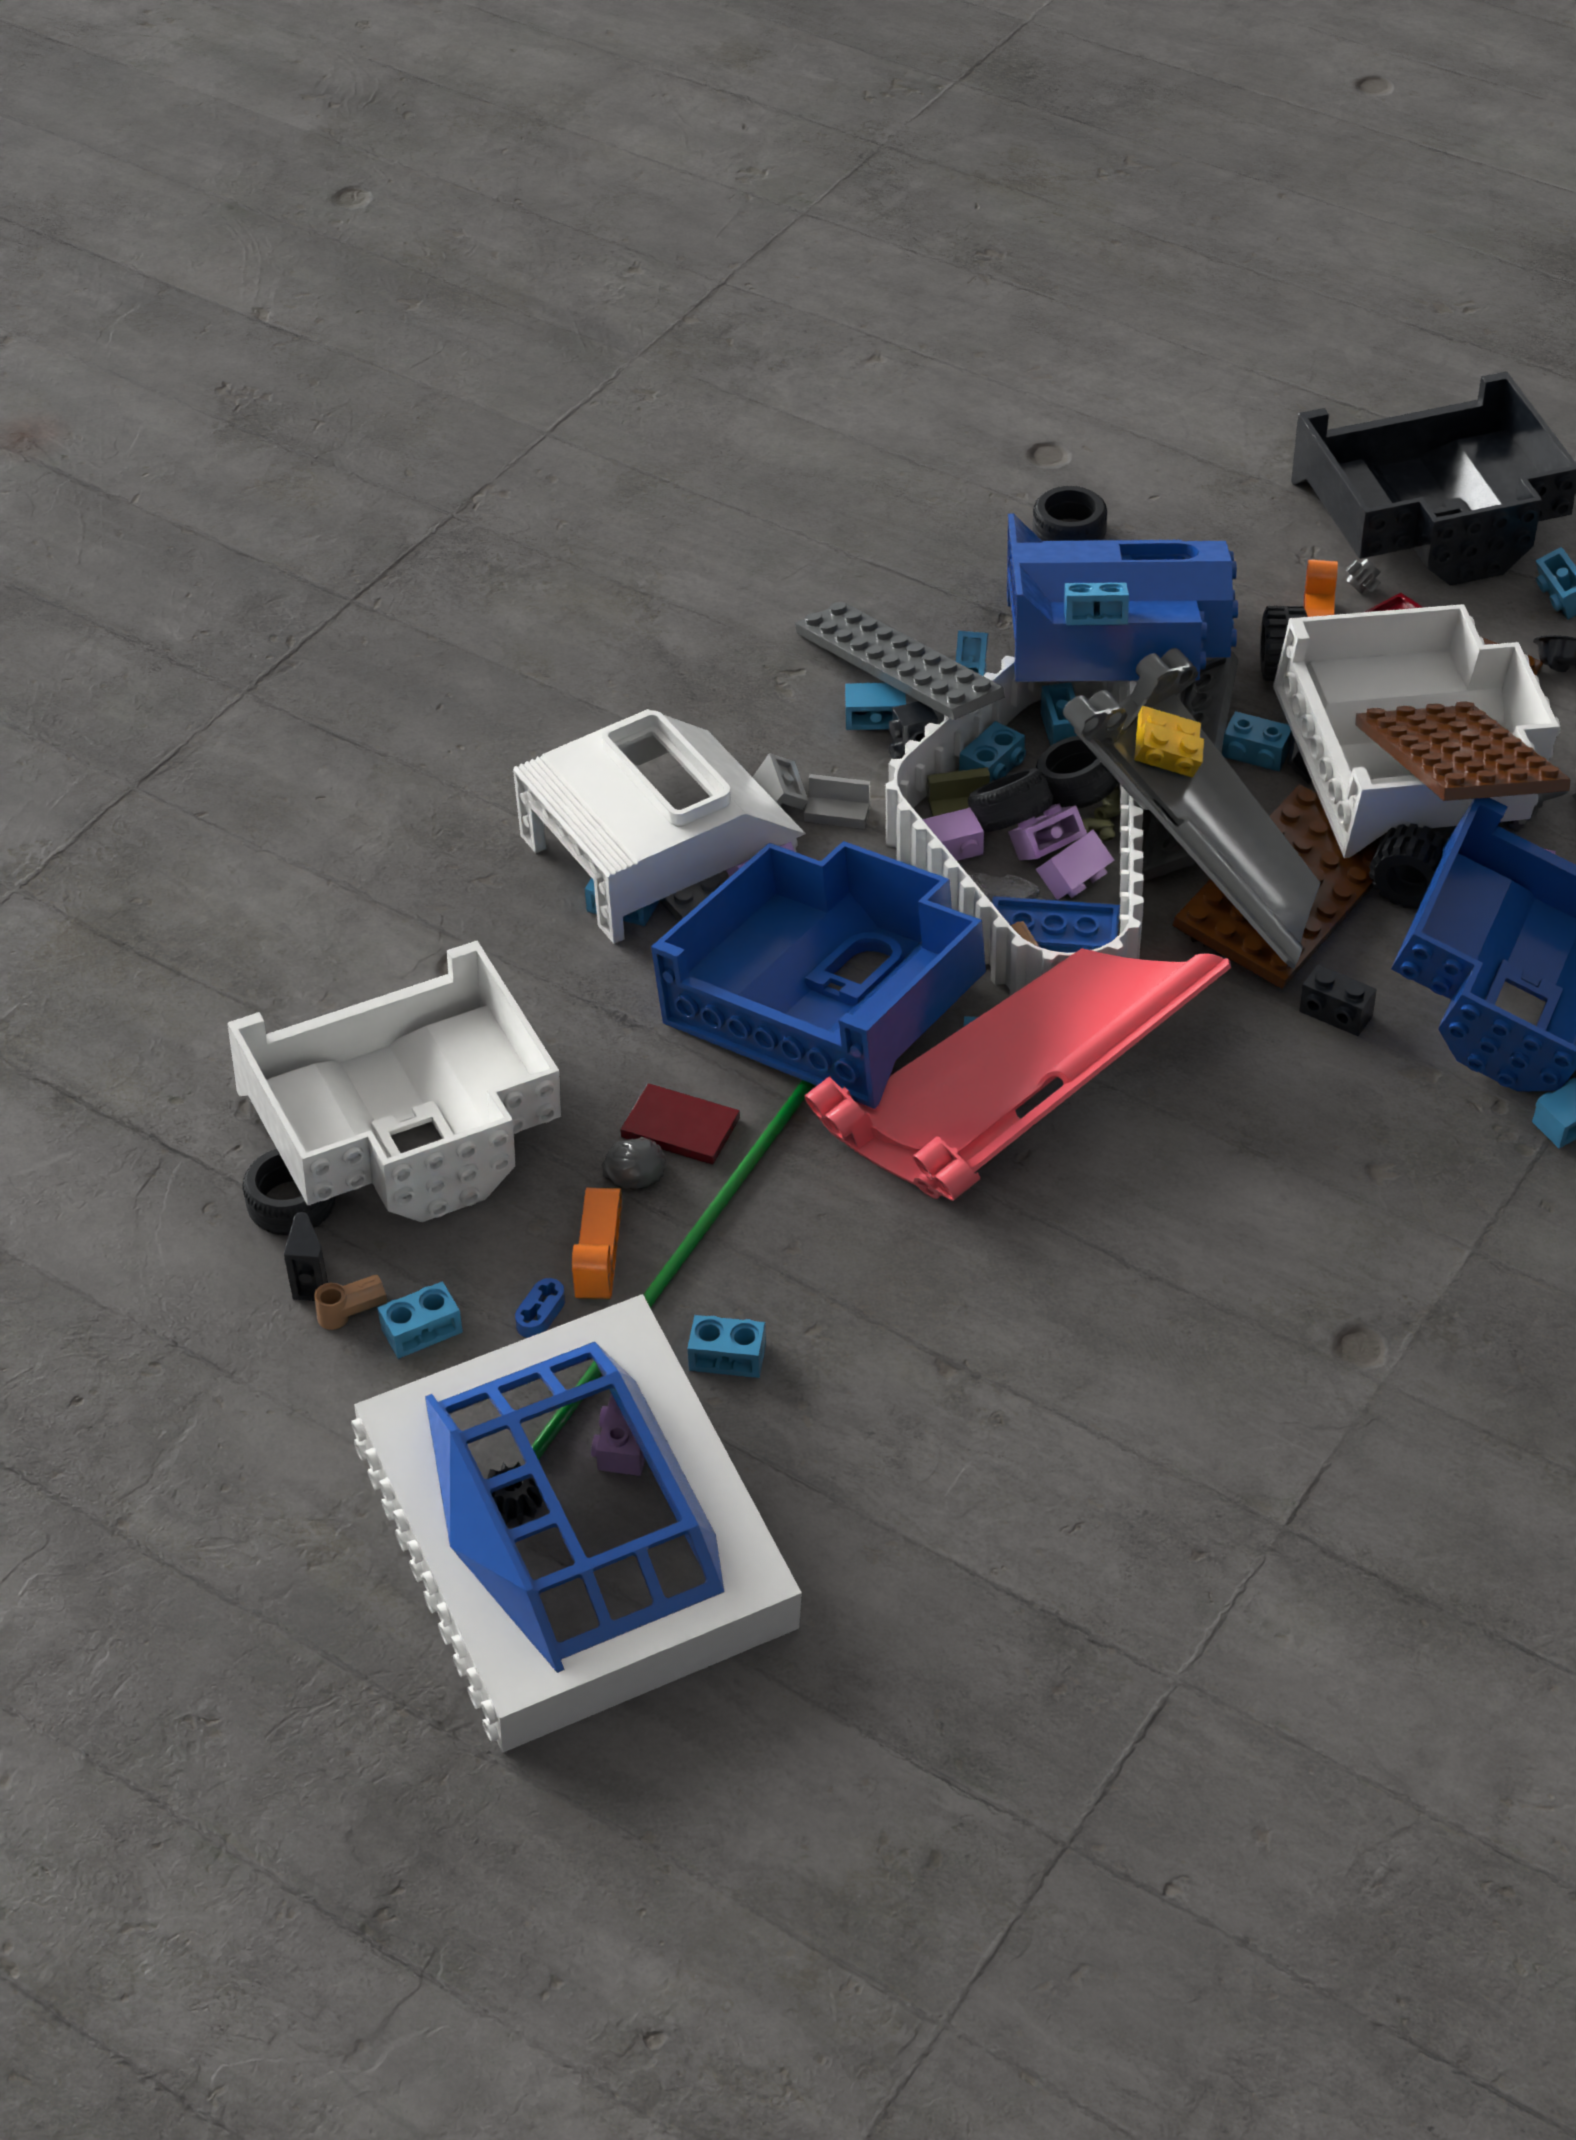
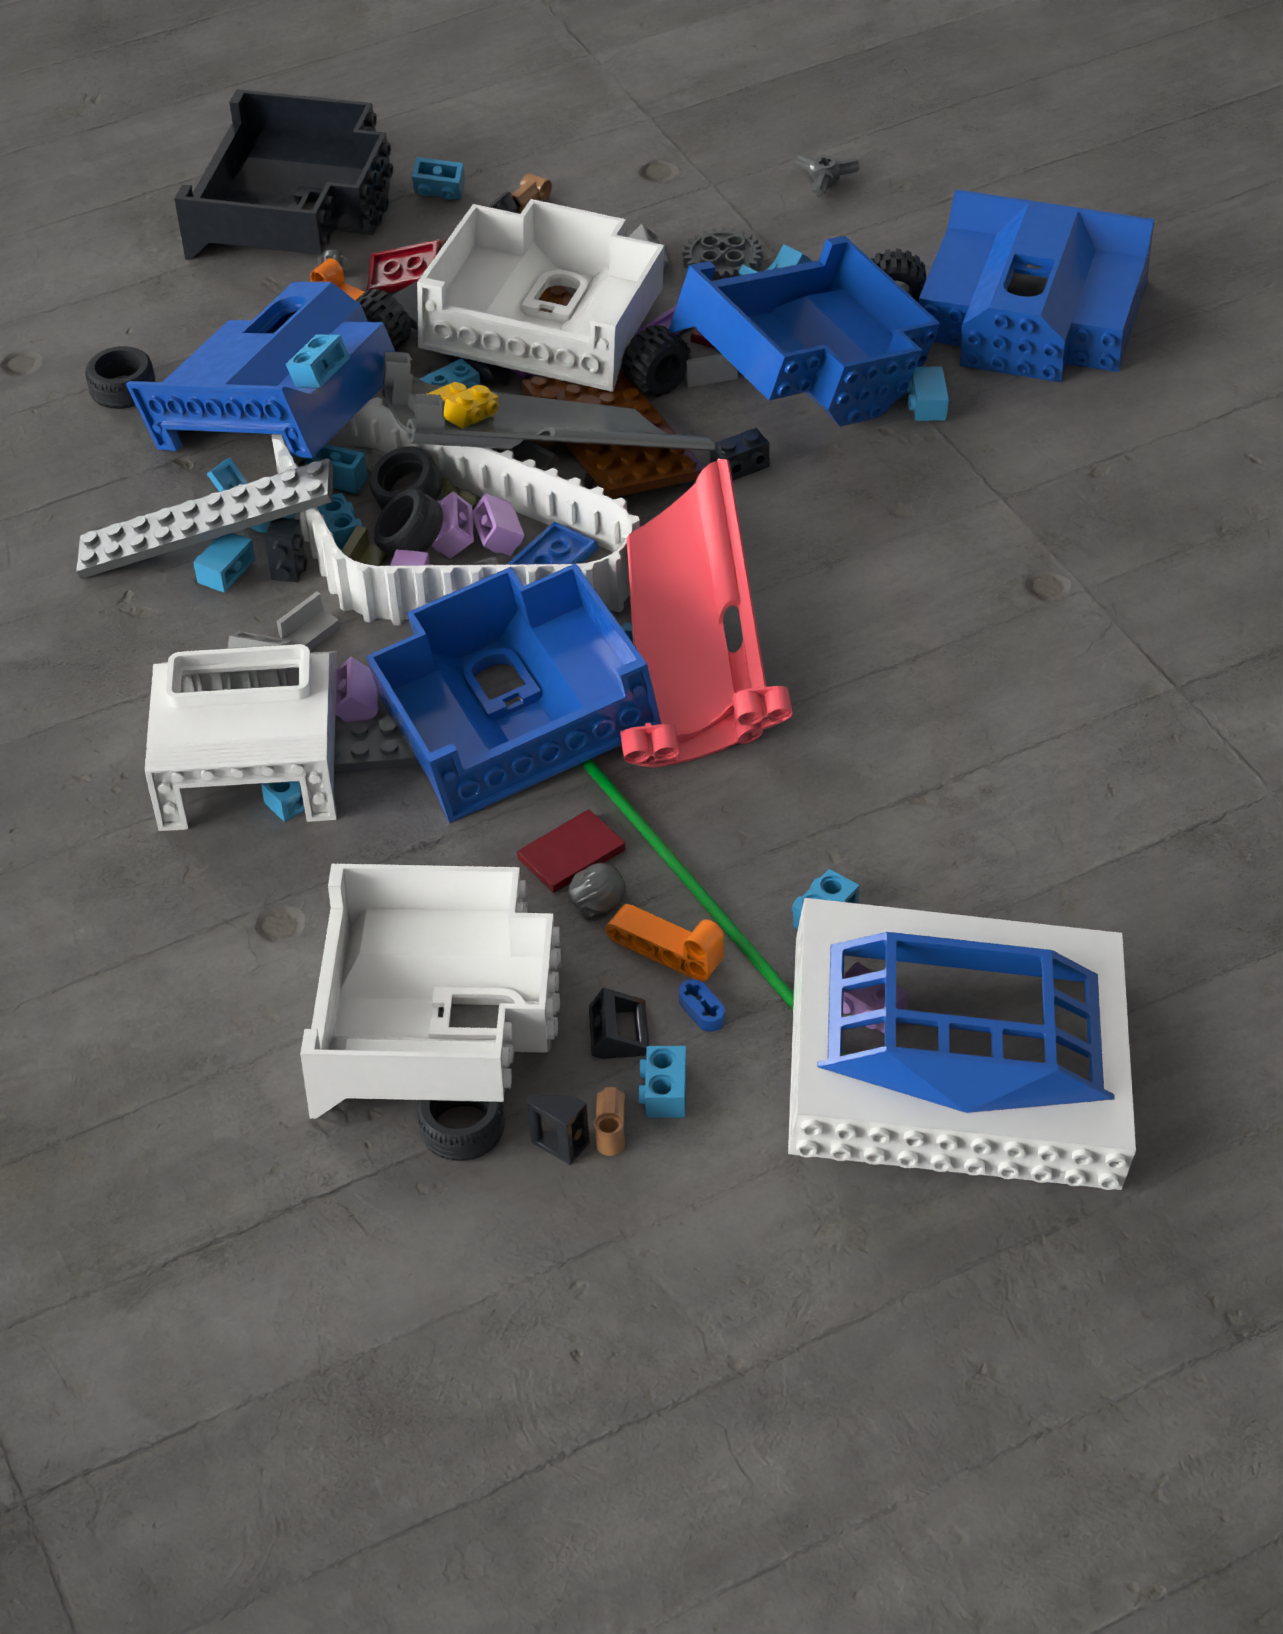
camera: 60 degrees left, 0 degrees up
(467, 1240) = (603, 1025): none -> black tile
(1461, 752) = (618, 267): reddish brown plate -> none

